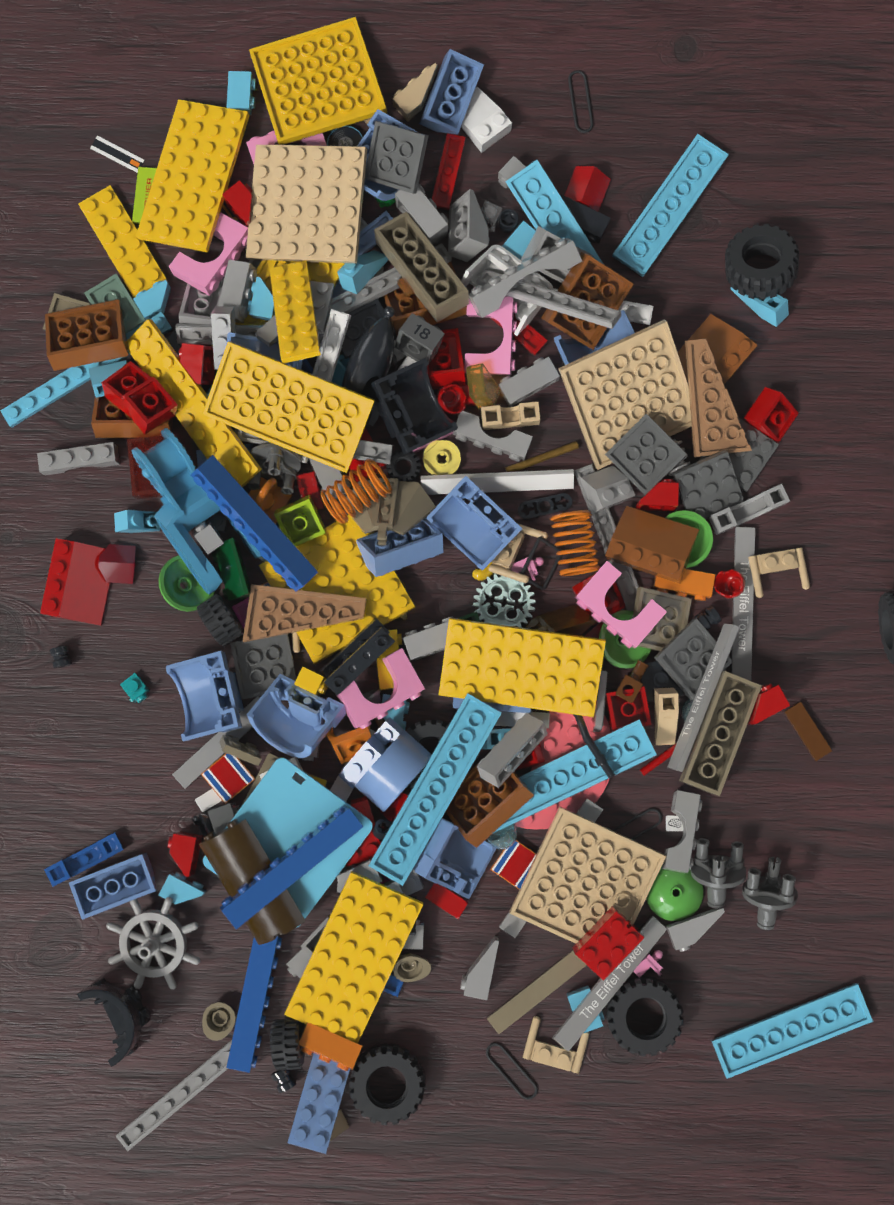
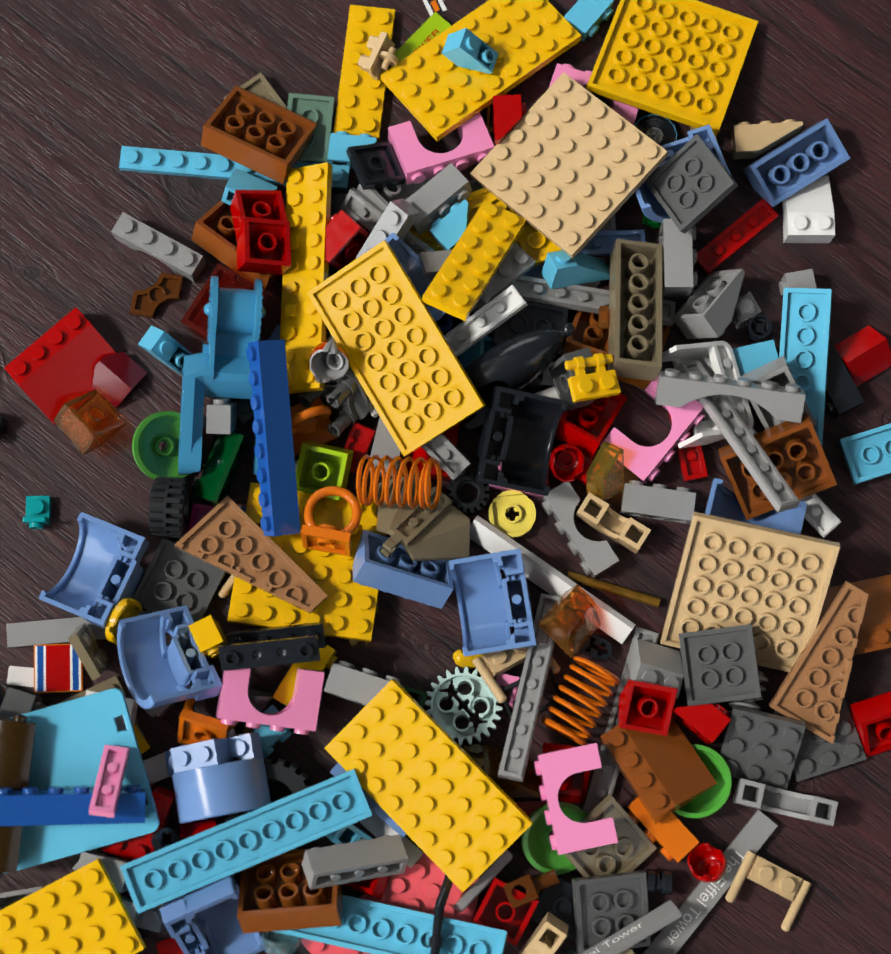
camera: 35 degrees right, 5 degrees down
(104, 482) = (148, 301): none -> reddish brown tile
(122, 605) = (89, 421): none -> clear orange slope
(127, 223) = (381, 55): none -> tan hips
(180, 298) = (376, 165): none -> black tile
(183, 176) = (469, 51): none -> medium azure slope
(243, 706) = (124, 609): none -> yellow tile
(251, 448) = (328, 362): none -> light grey hat
(321, 818) = (109, 781): none -> bright pink tile
(337, 561) = (325, 536): none -> orange tile
(434, 335) = (592, 385): none -> yellow plate
(531, 496) = (571, 620): none -> clear orange slope
(539, 558) = (528, 698): none -> light grey tile
(620, 515) = (646, 707): none -> red slope

